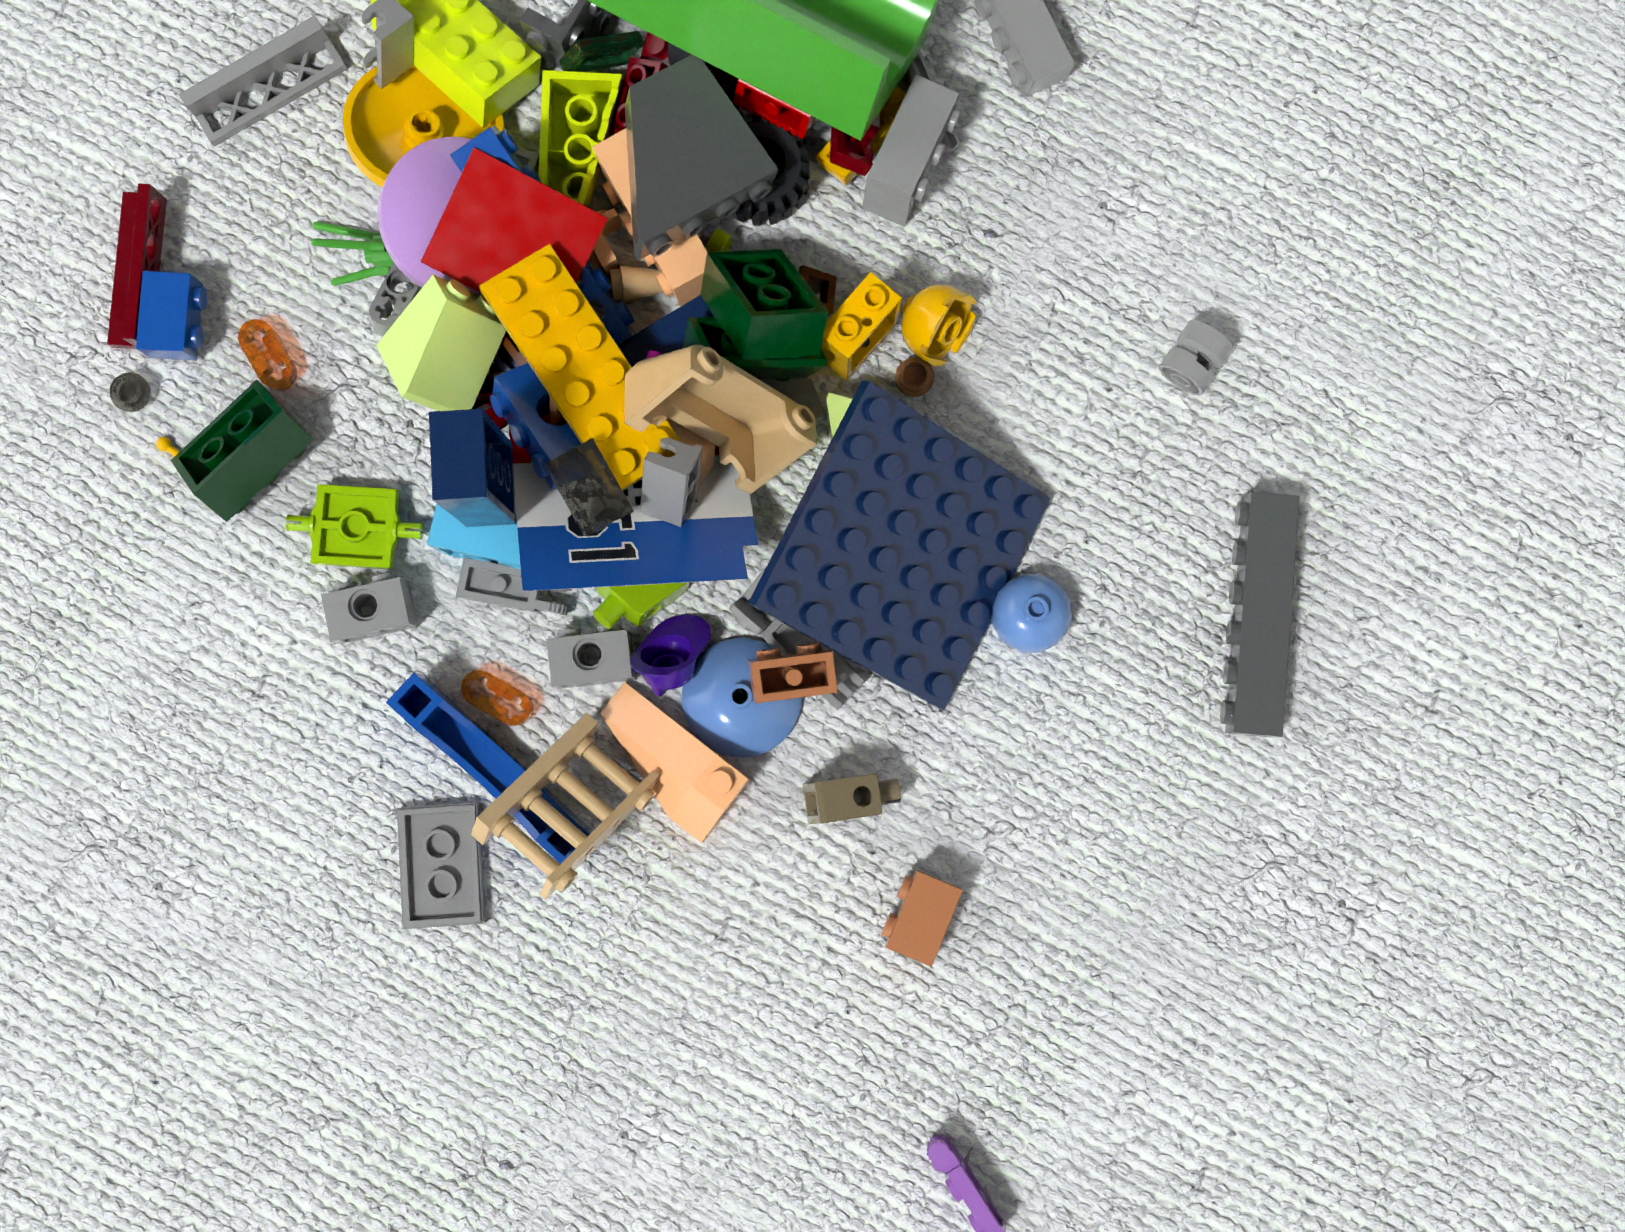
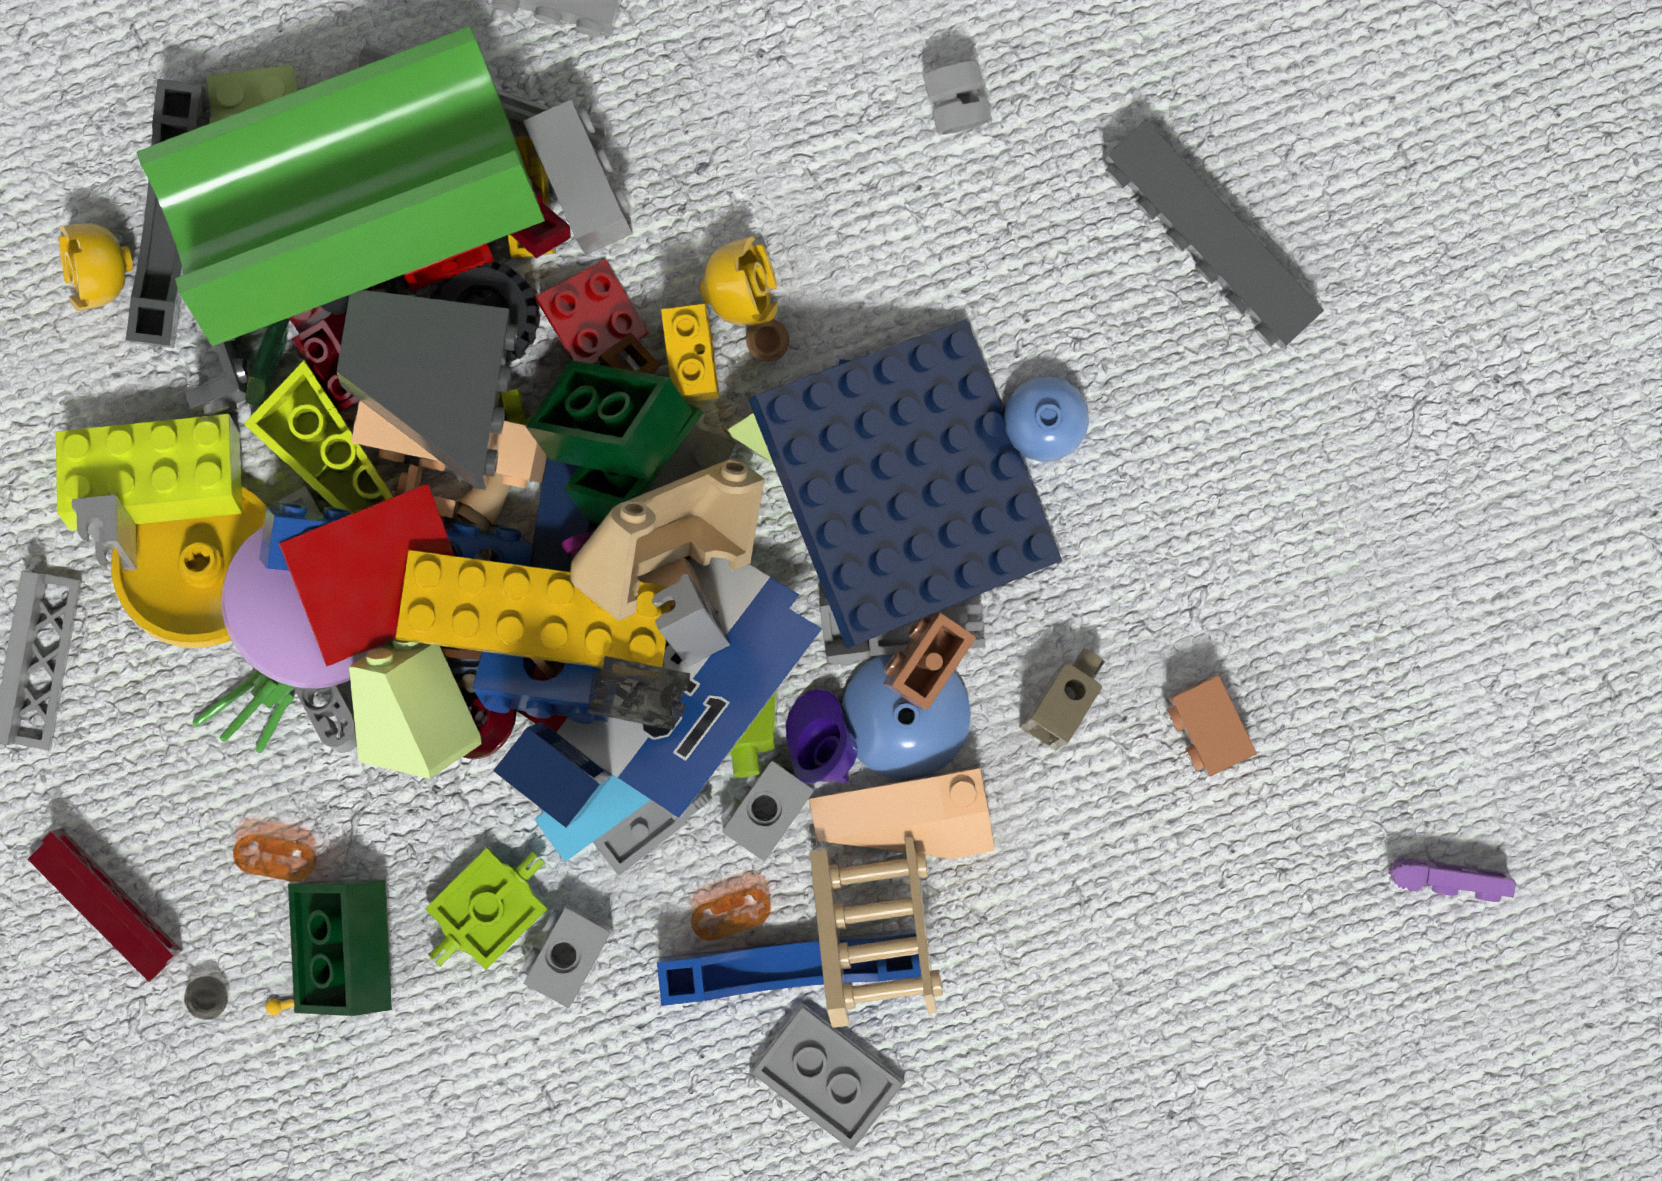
camera: 50 degrees left, 5 degrees up
(170, 315) = (175, 908): blue brick -> none
(827, 240) = (590, 313): none -> red hinge

